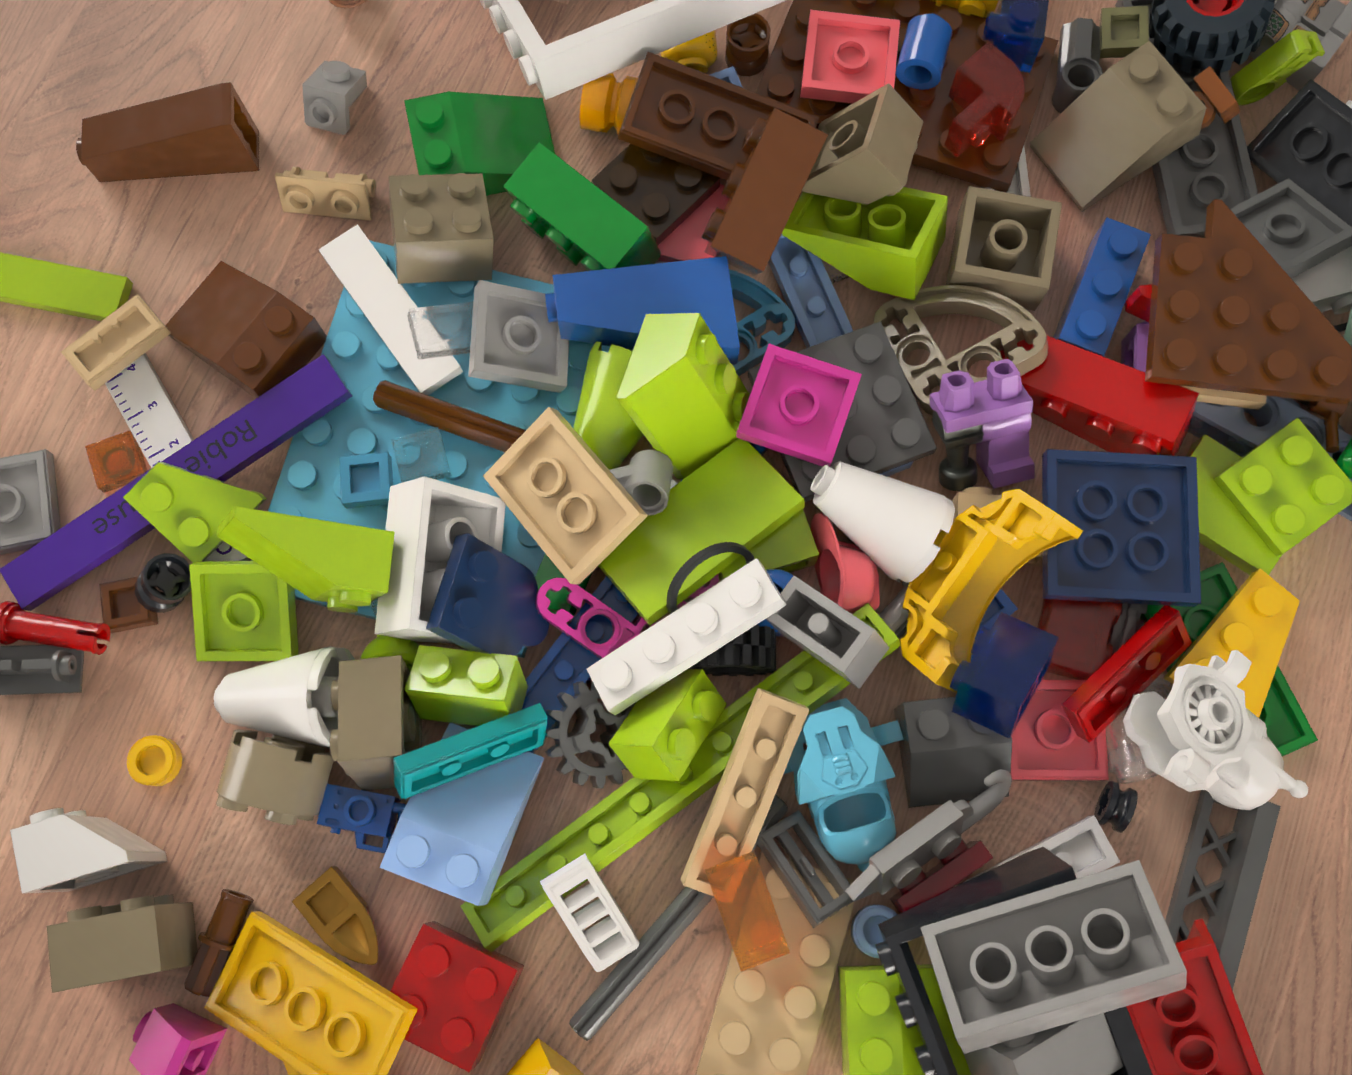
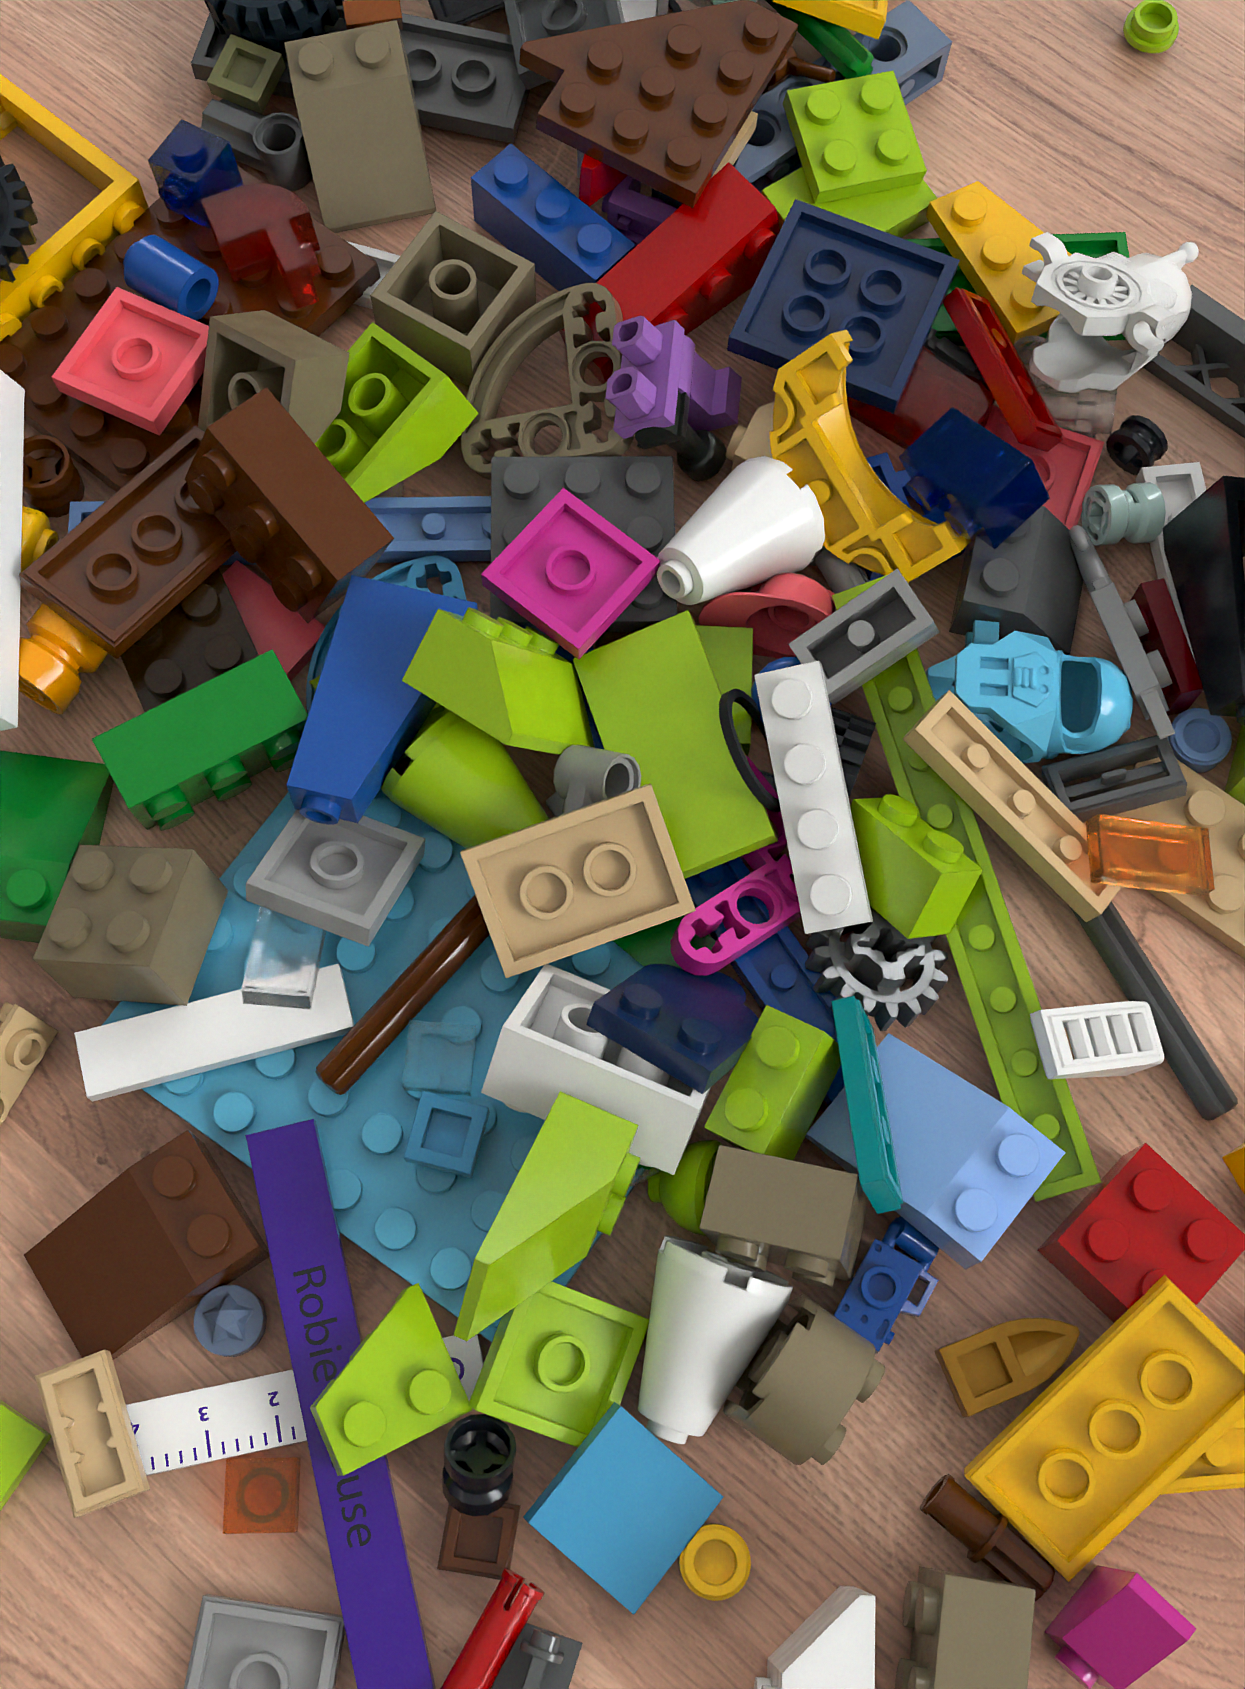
camera: 75 degrees left, 5 degrees down
(166, 687) = (623, 1507): none -> dark azure tile
(216, 398) = (230, 1321): none -> sand blue tile
(1045, 812) = (1128, 513): none -> light aqua wheel

